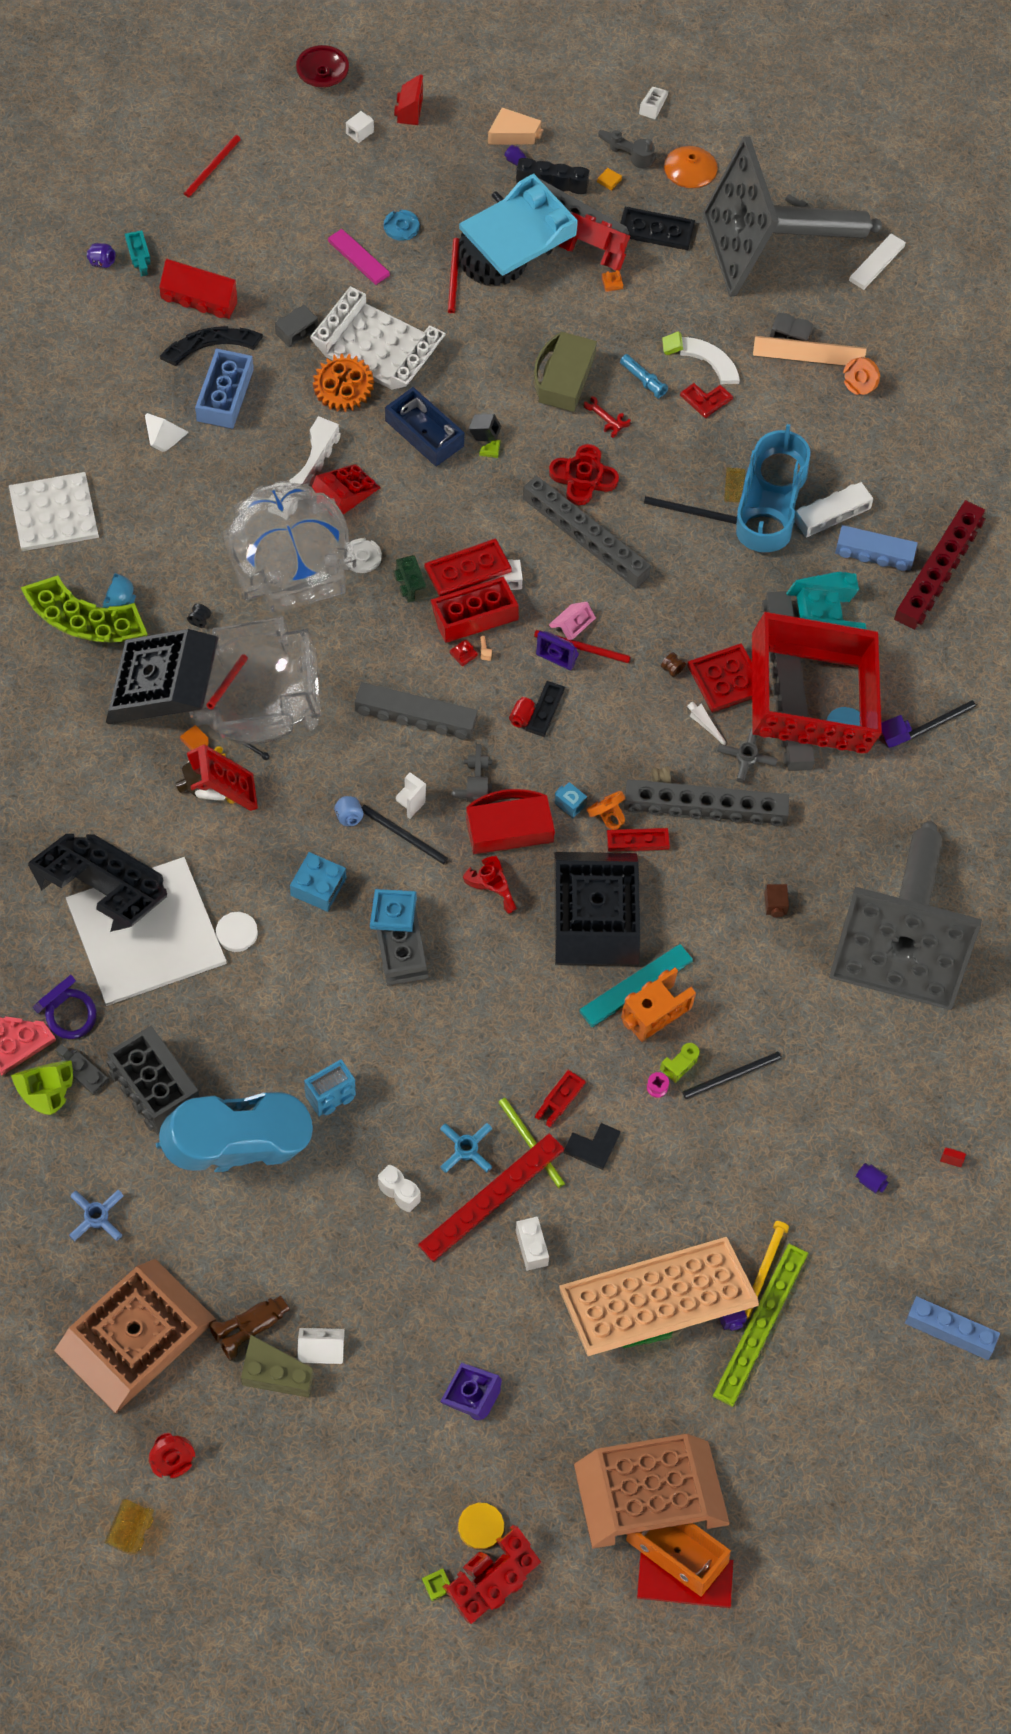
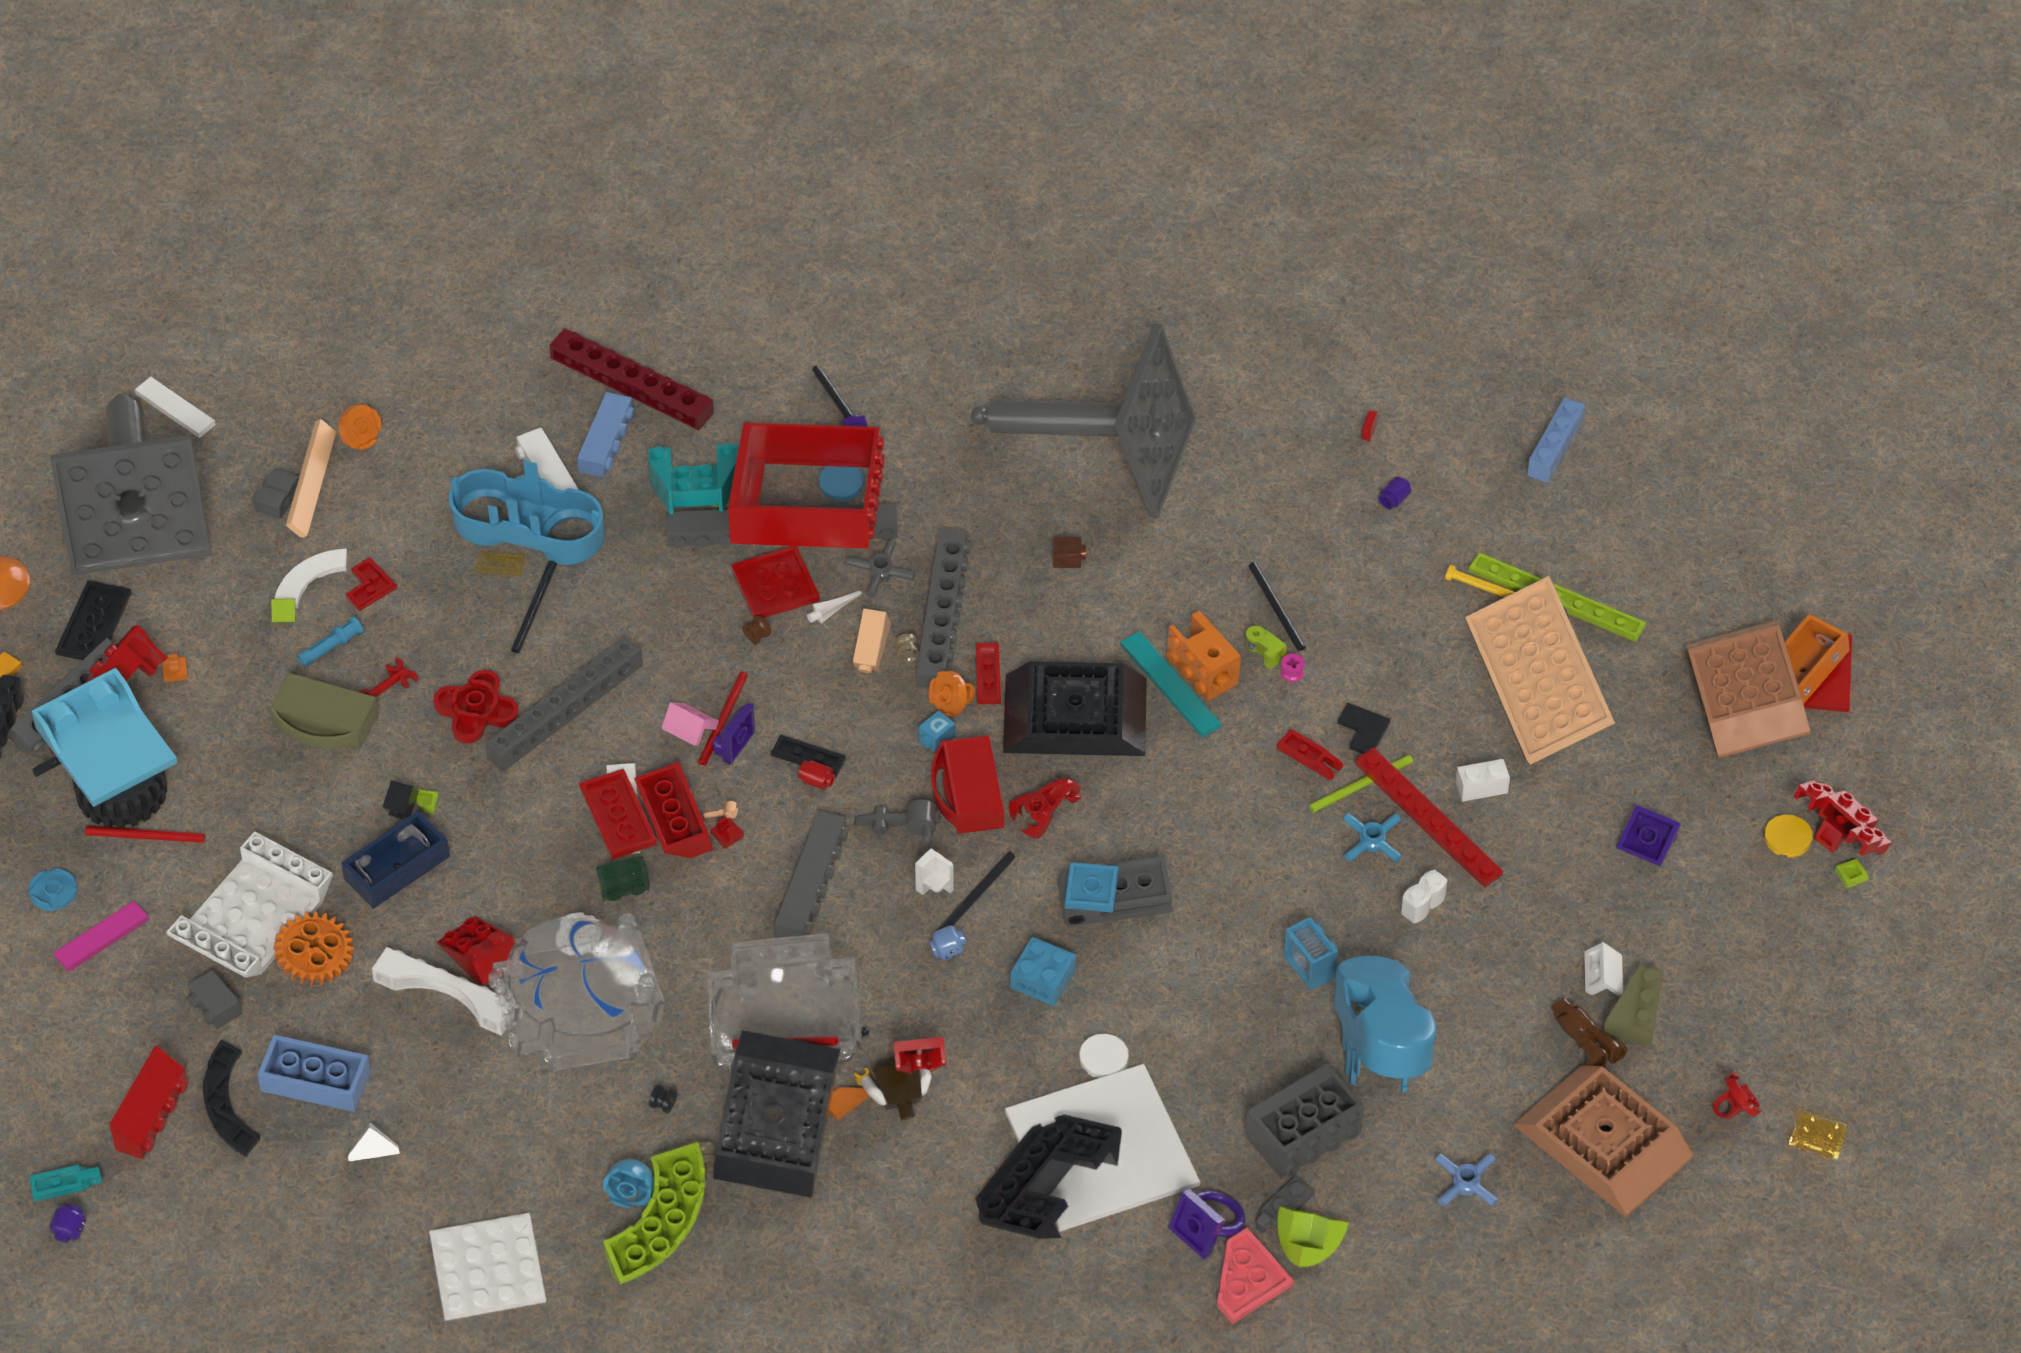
camera: 85 degrees left, 10 degrees down
(665, 747) = (871, 640): none -> light nougat slope

